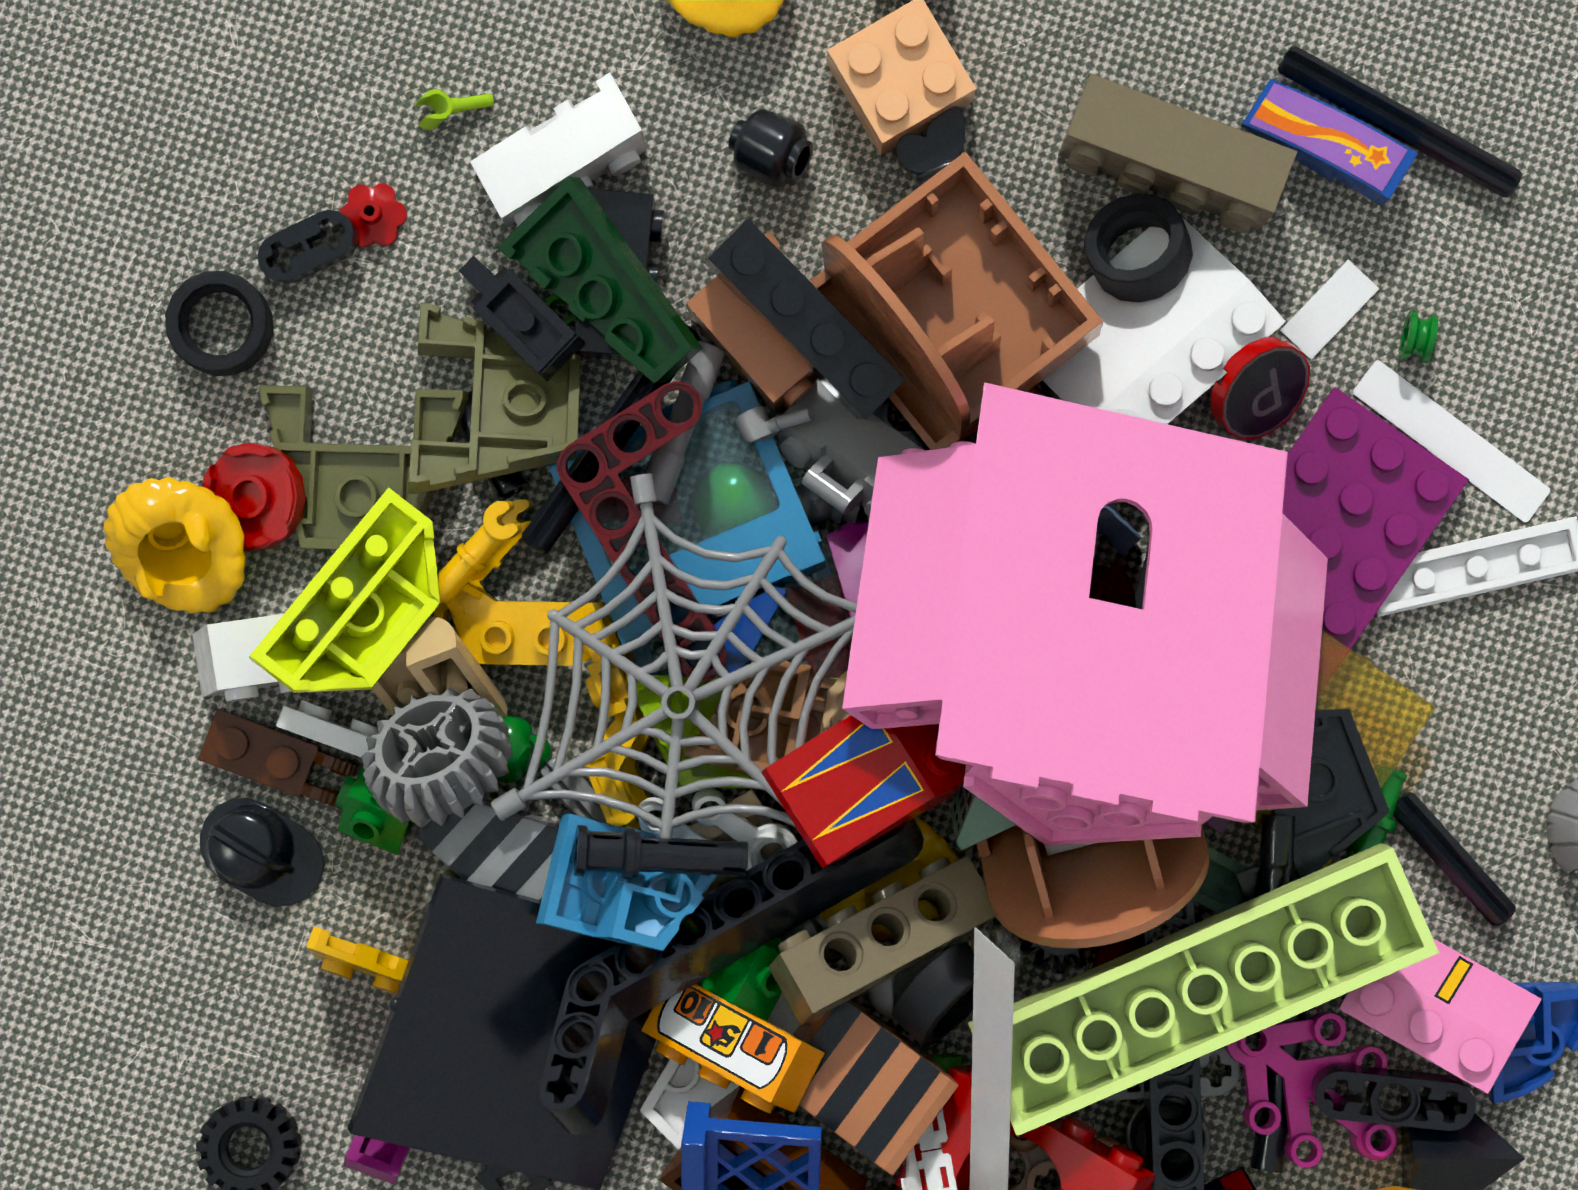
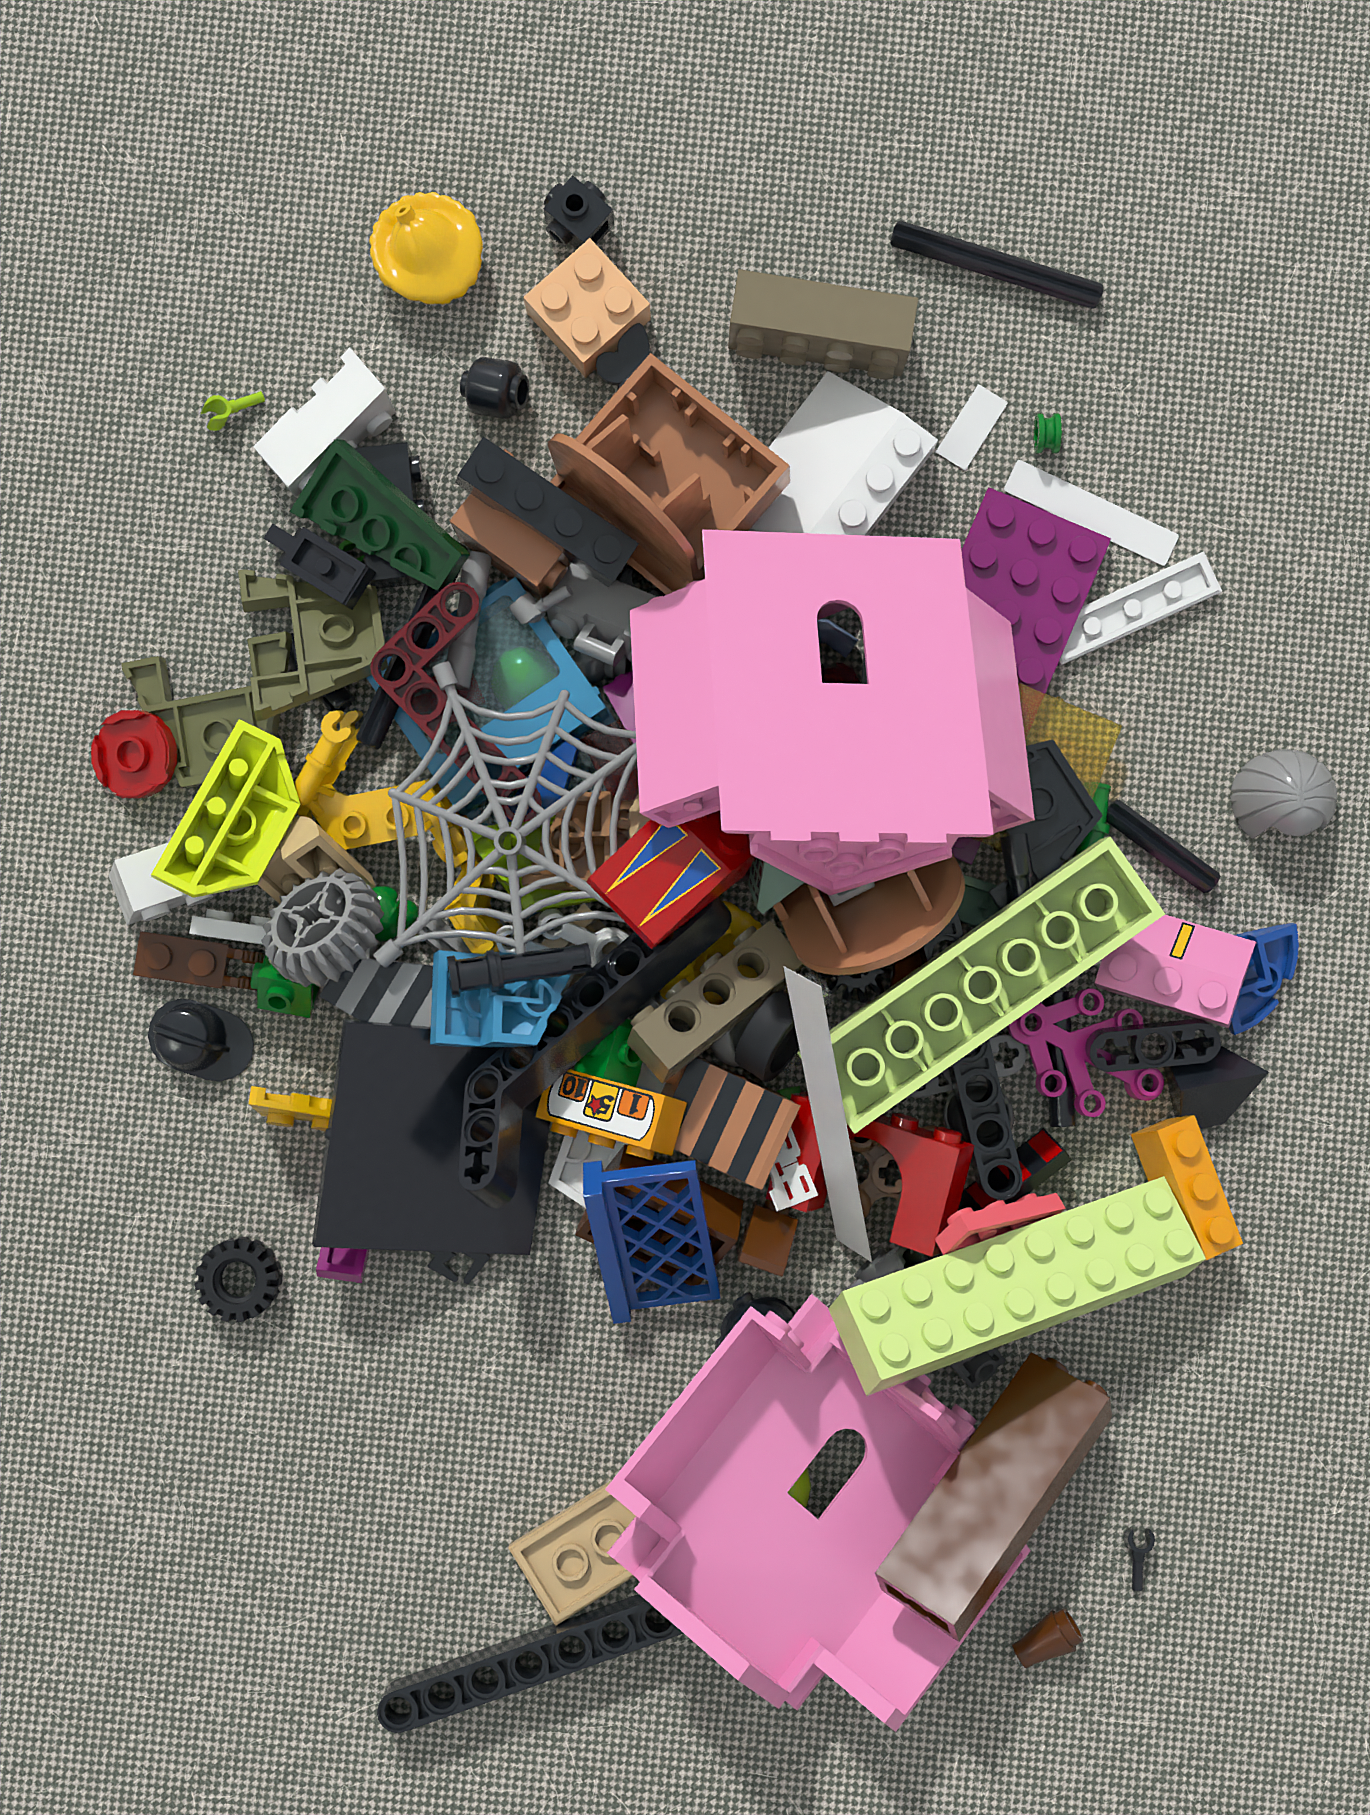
camera: 15 degrees left, 0 degrees up
(177, 544) = (79, 804): yellow piece -> none
(216, 282) = (48, 603): black tyre -> none
(302, 235) = (130, 536): black beam -> none
(387, 216) = (190, 517): red plant -> none
(1130, 213) = (788, 386): black tyre -> none
(1260, 388) = (929, 497): tile -> none
(1330, 141) = (947, 290): slope -> none

